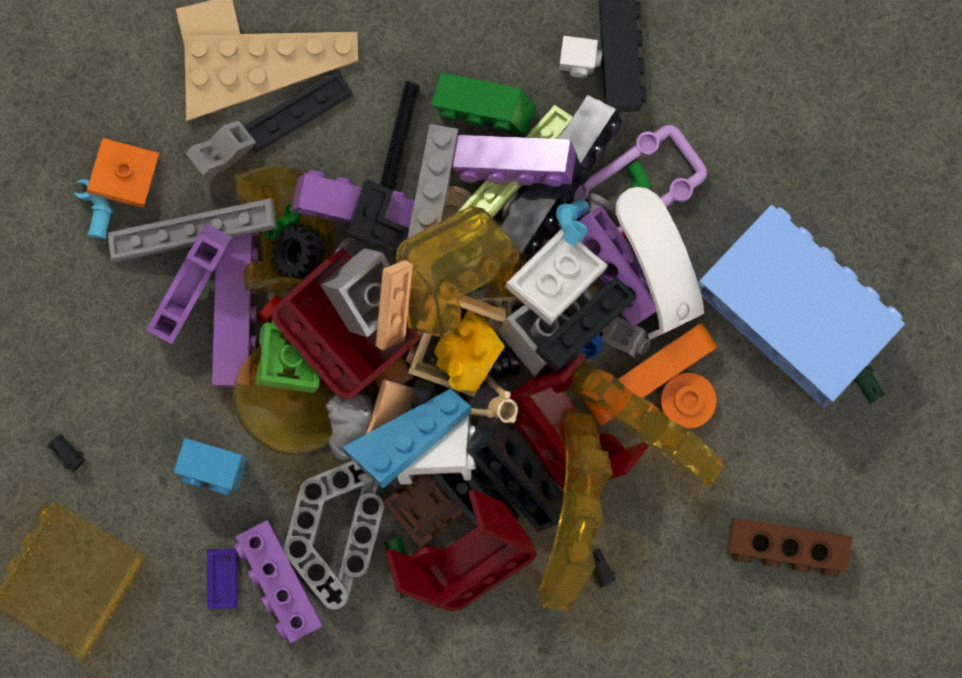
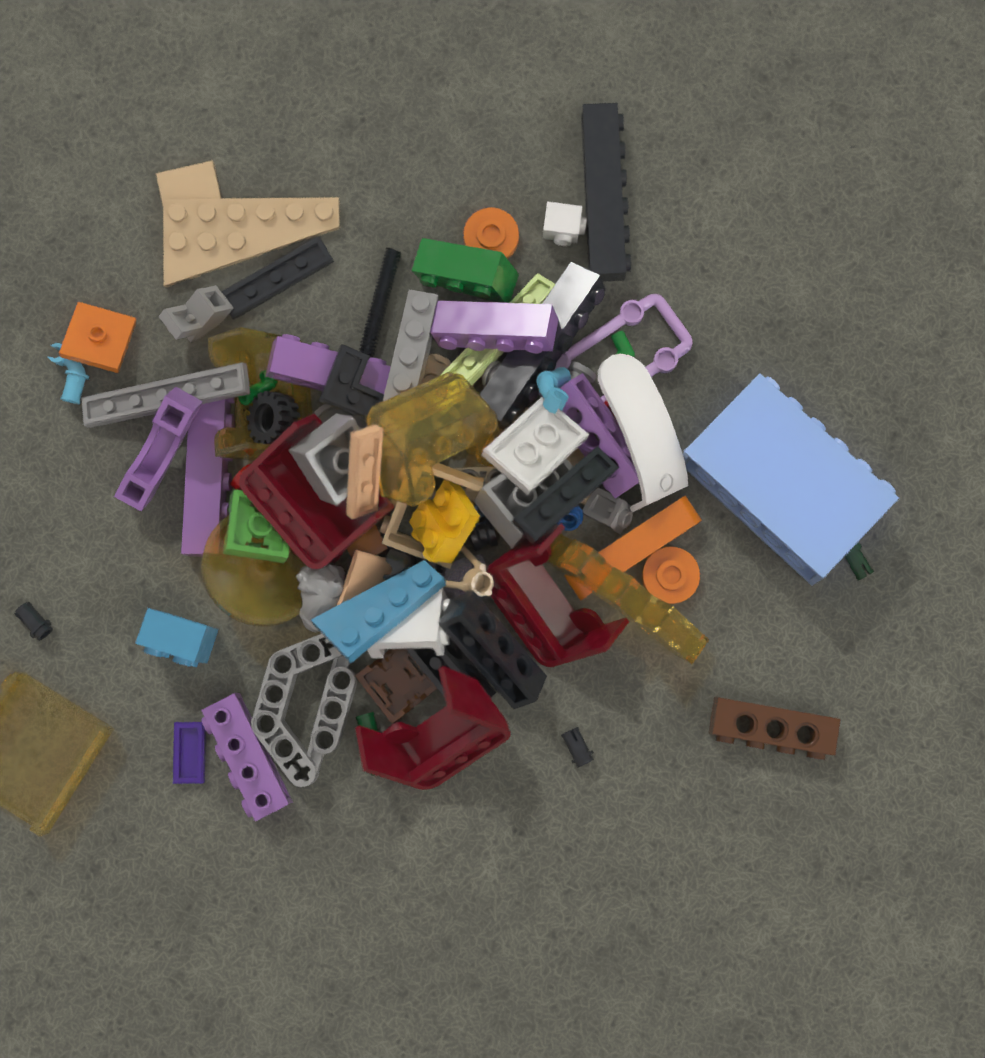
camera: 10 degrees right, 0 degrees up
(509, 65) = (492, 230): none -> orange piece
(581, 513) = (558, 691): clear yellow arch -> none

